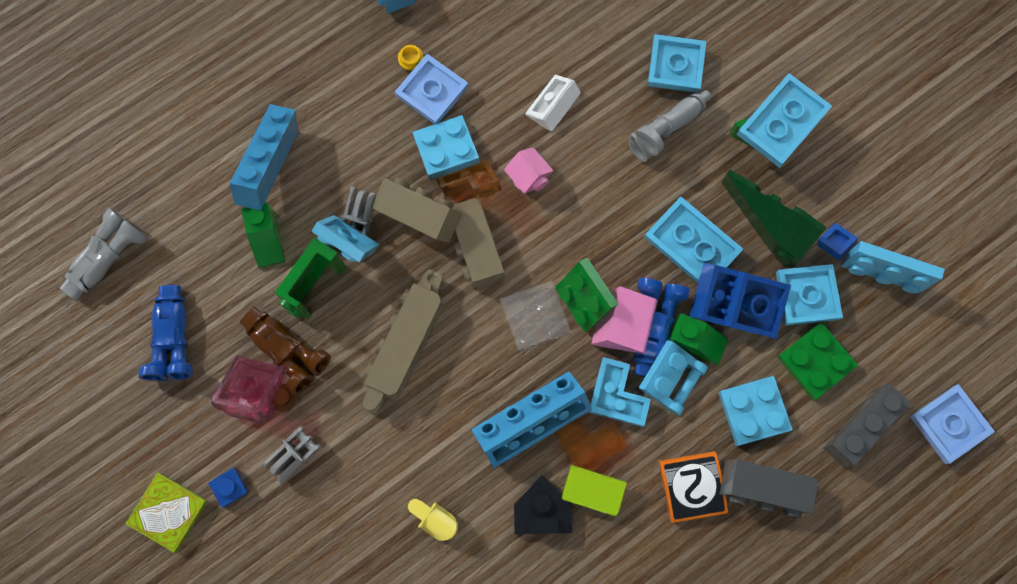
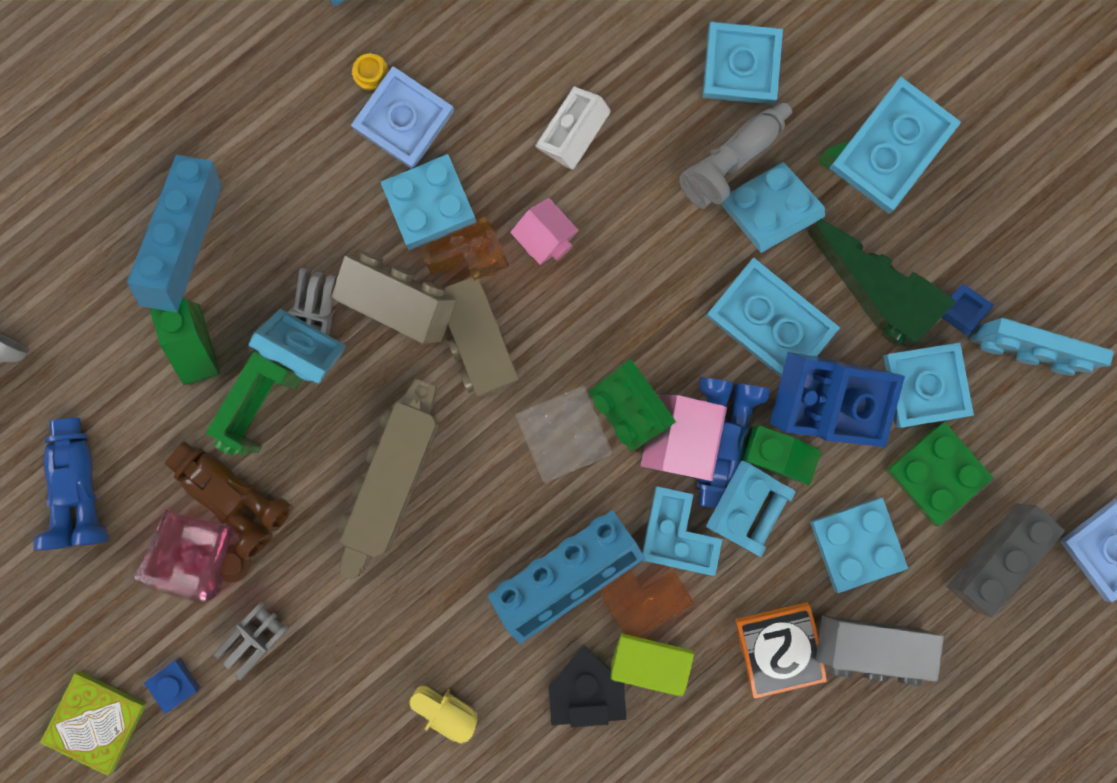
camera: 15 degrees left, 10 degrees up
(695, 161) = (773, 207): none -> medium azure plate

